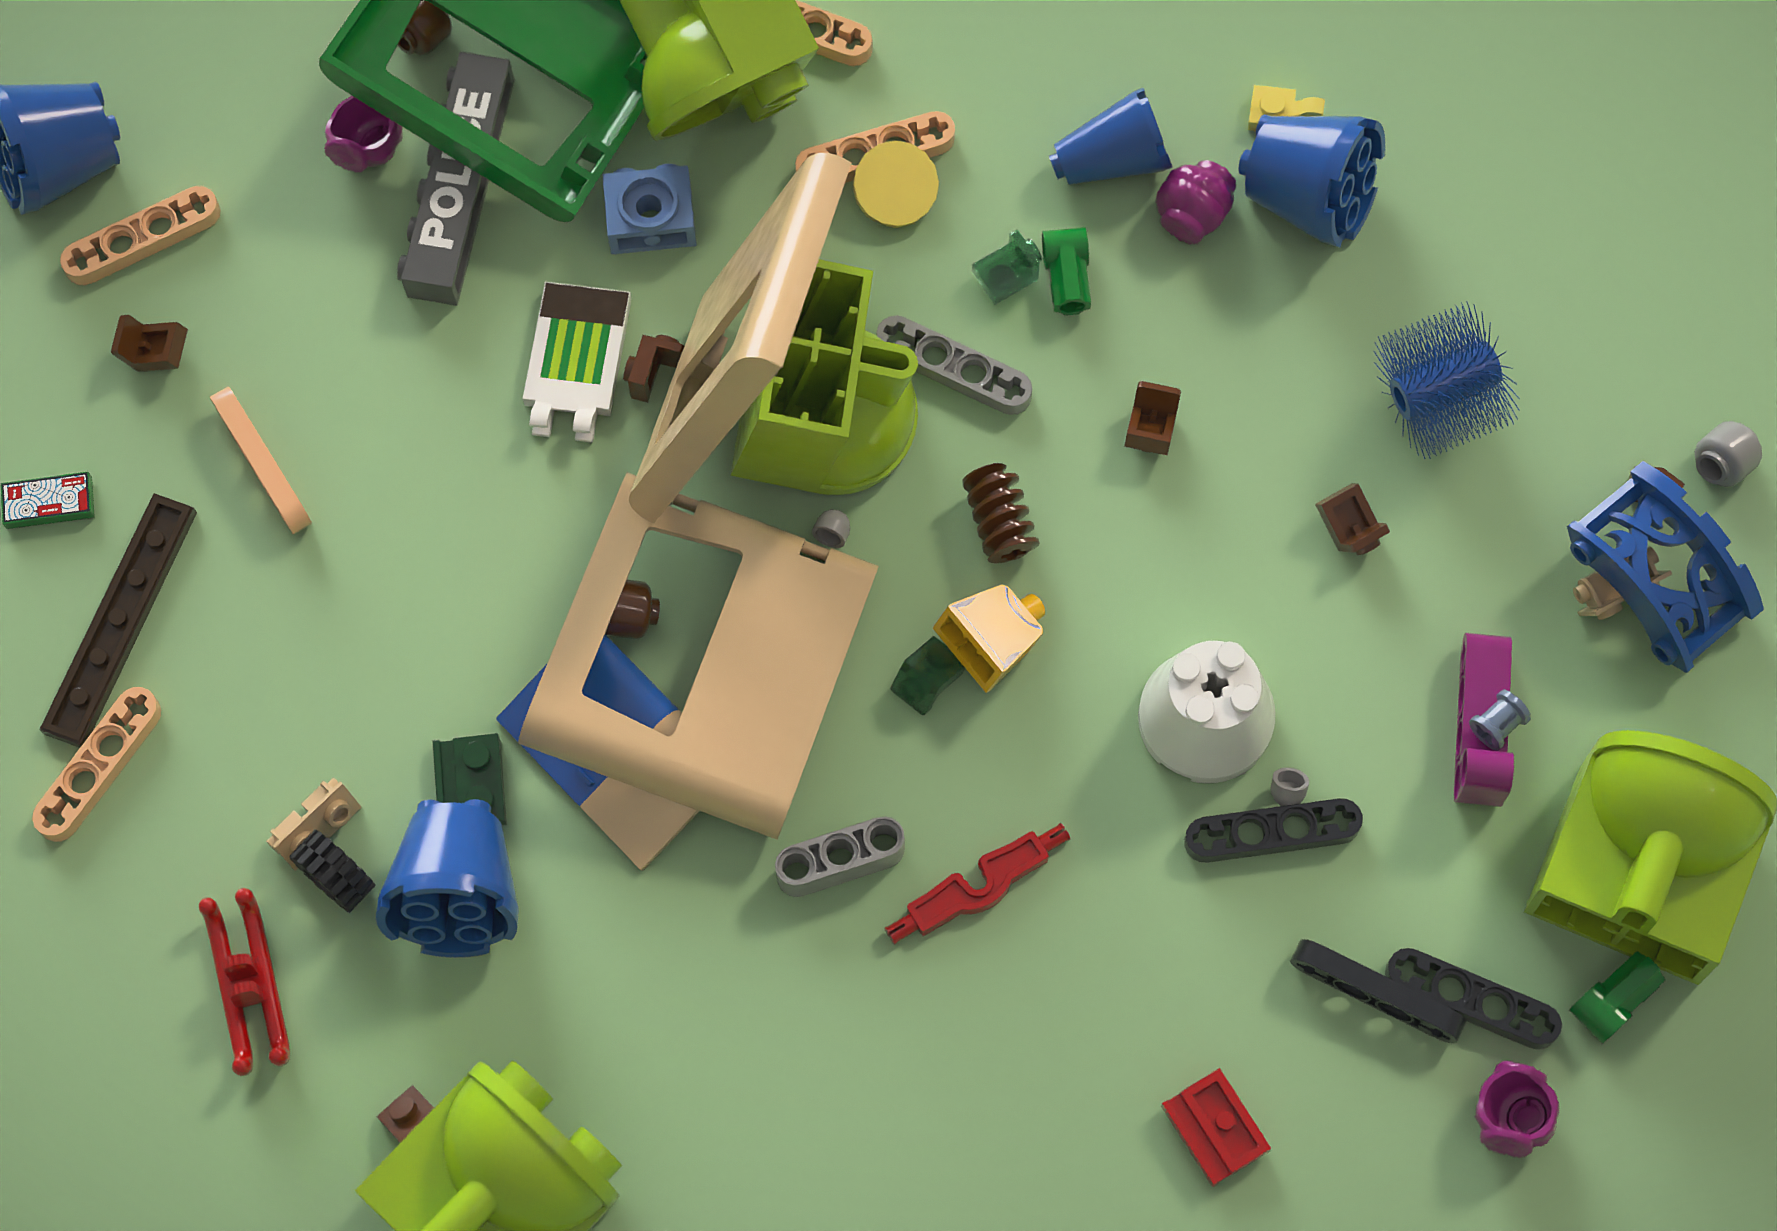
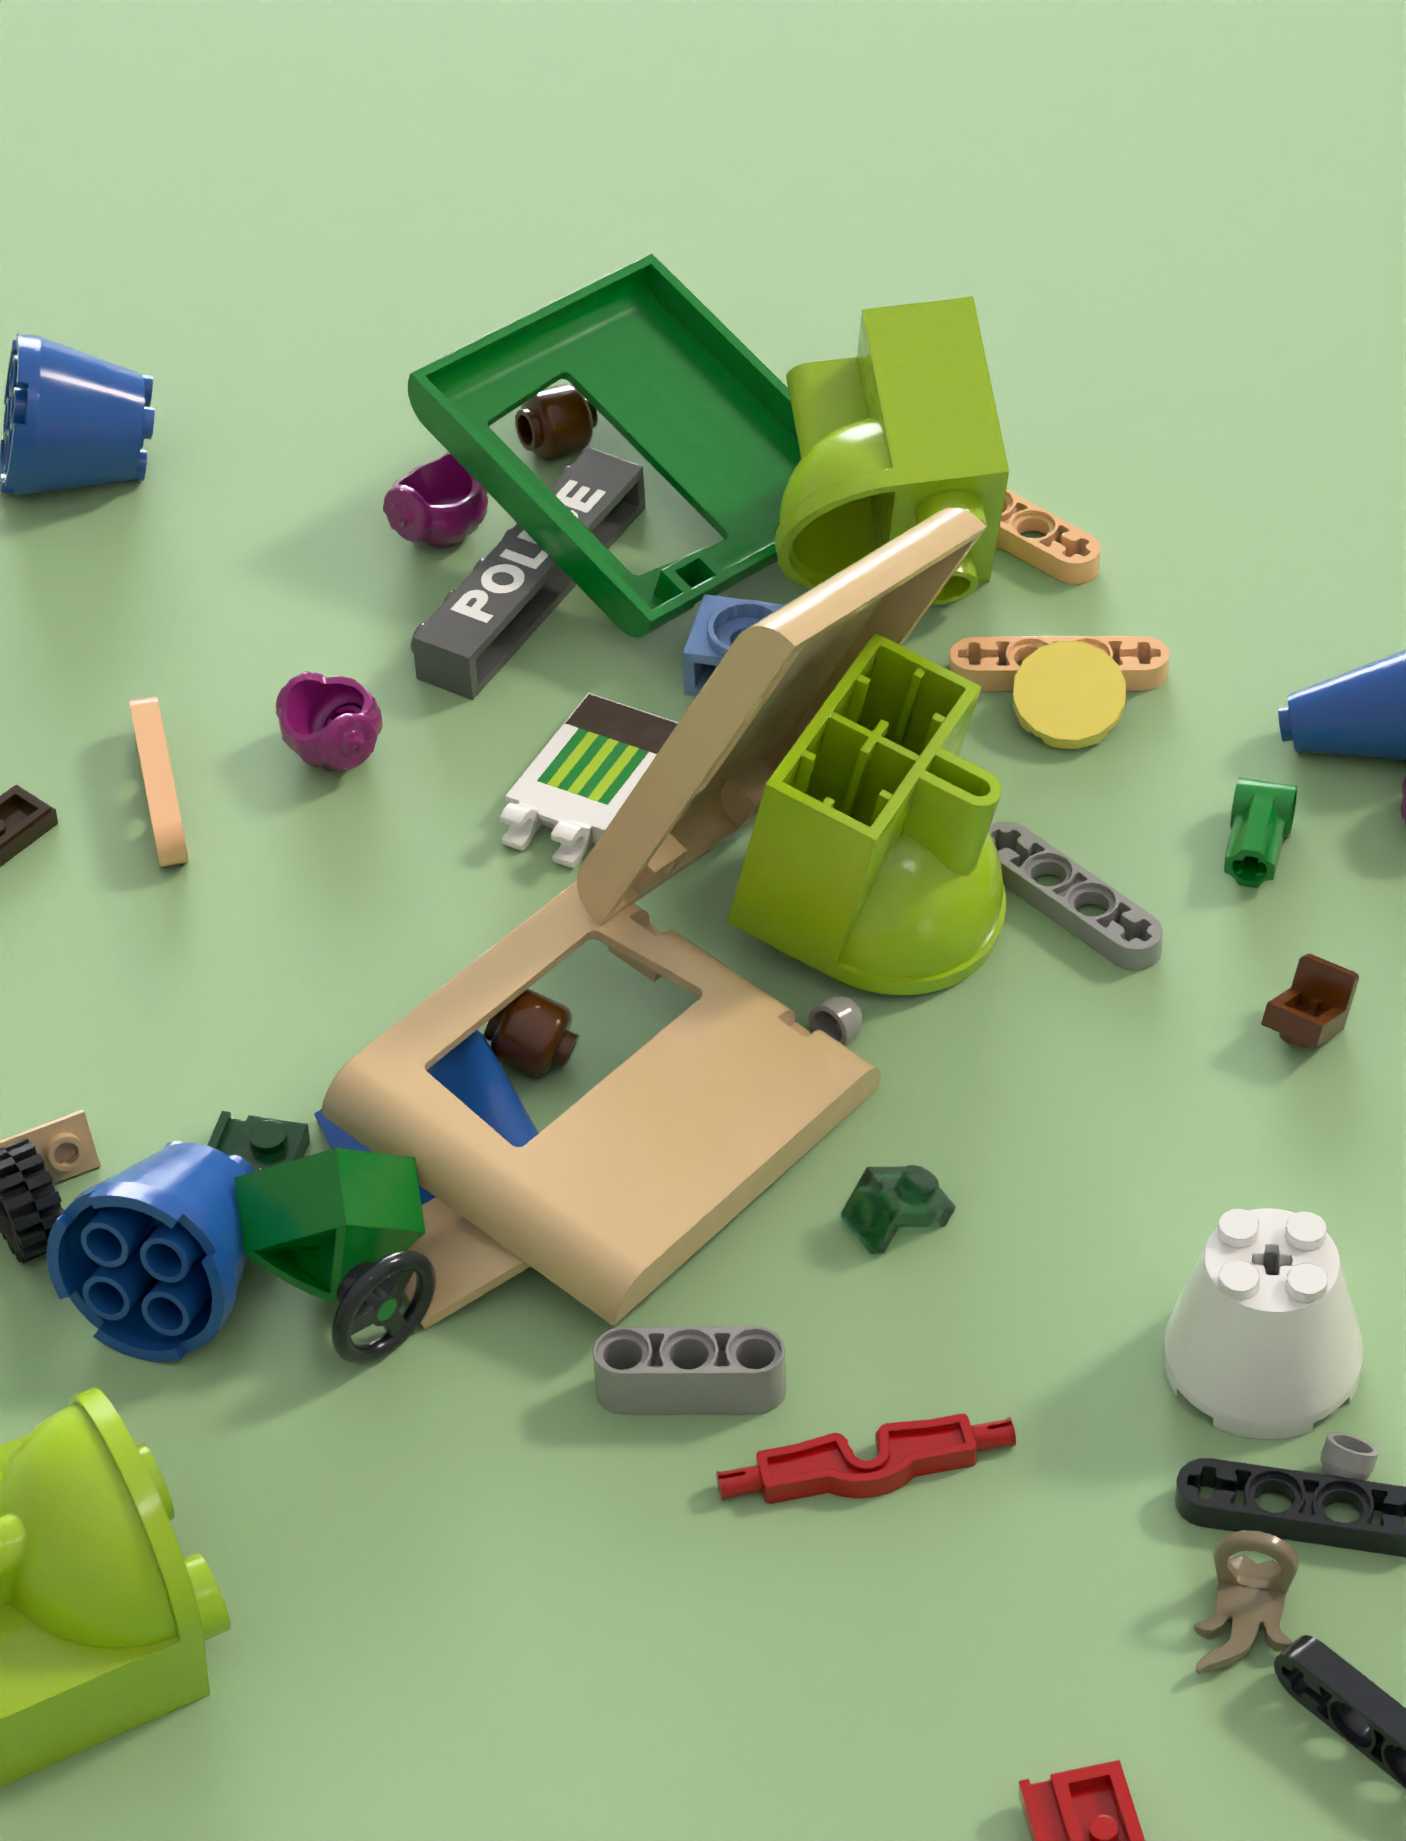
camera: 20 degrees right, 25 degrees down
(137, 228) = (54, 560): light nougat beam -> none
(148, 345) = (83, 645): reddish brown bracket -> none
(368, 372) = (328, 720): none -> magenta hair
(562, 837) = (338, 1233): none -> green piece
(991, 632) = (998, 1170): yellow torso -> none
(997, 514) = (1064, 1051): reddish brown piece -> none
(1008, 268) = (1182, 810): clear green bracket -> none
(1259, 914) = (1248, 1596): none -> dark tan piece

